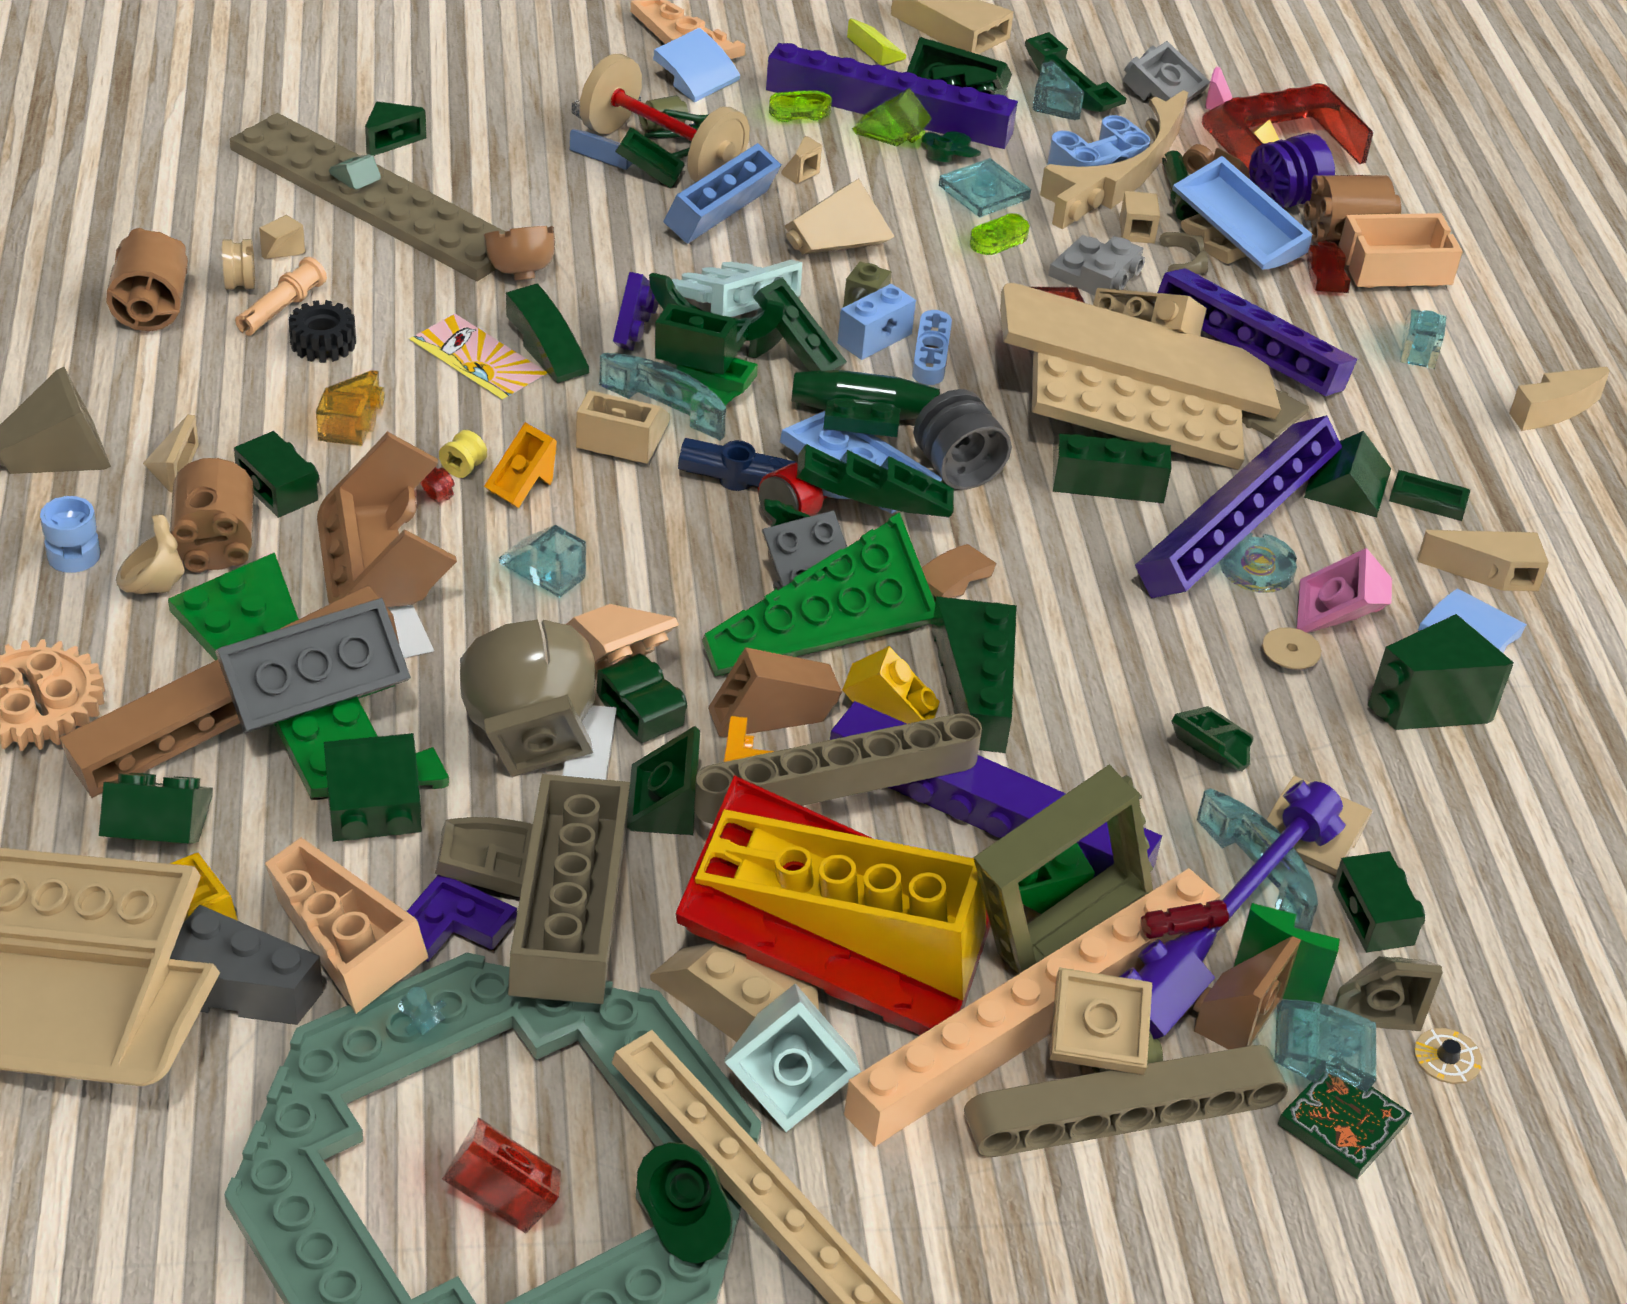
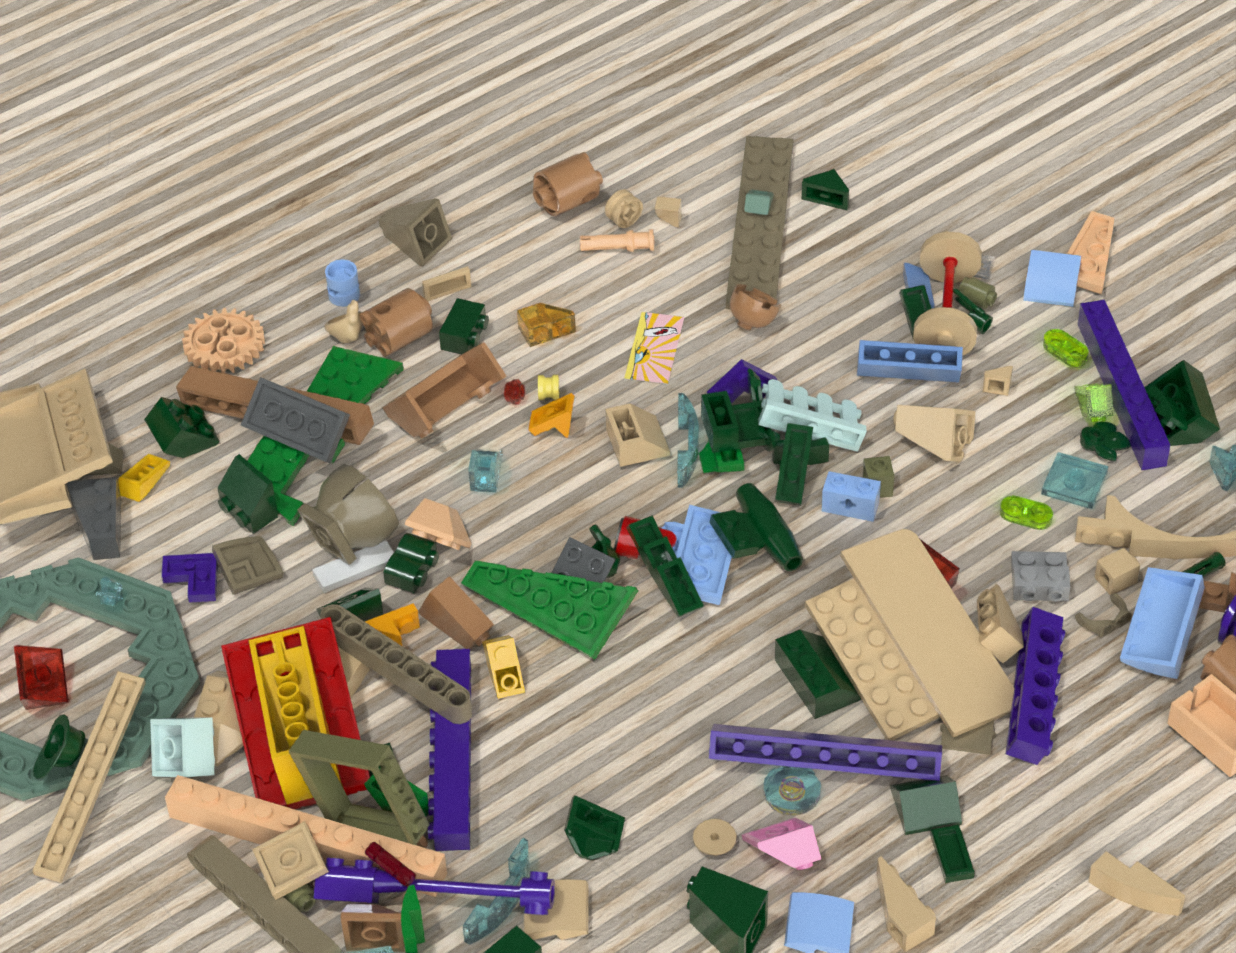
camera: 65 degrees right, 5 degrees up
(322, 331) = (604, 284): black tyre -> none
(351, 926) = (145, 534): light nougat wedge -> none
(410, 631) = (392, 445): white sticker -> none
(545, 333) = (690, 360): dark green slope -> none
(569, 890) = (232, 602): dark tan brick -> none
(733, 464) = (644, 496): dark blue piece -> none
(873, 43) = (1194, 344): neon yellow slope -> none
(934, 356) = (869, 526): light blue beam -> none
(954, 569) = (645, 644): medium nougat slope -> none
(962, 439) = (754, 588): flat silver wheel -> none
(978, 661) = (555, 694): dark green wedge -> none
(1117, 142) = (1156, 512): light blue beam -> none
(1197, 157) = (1228, 567): medium nougat tile -> none
(1326, 268) = (1159, 702): clear red slope -> none
(1422, 338) = (1134, 780): clear light blue slope -> none

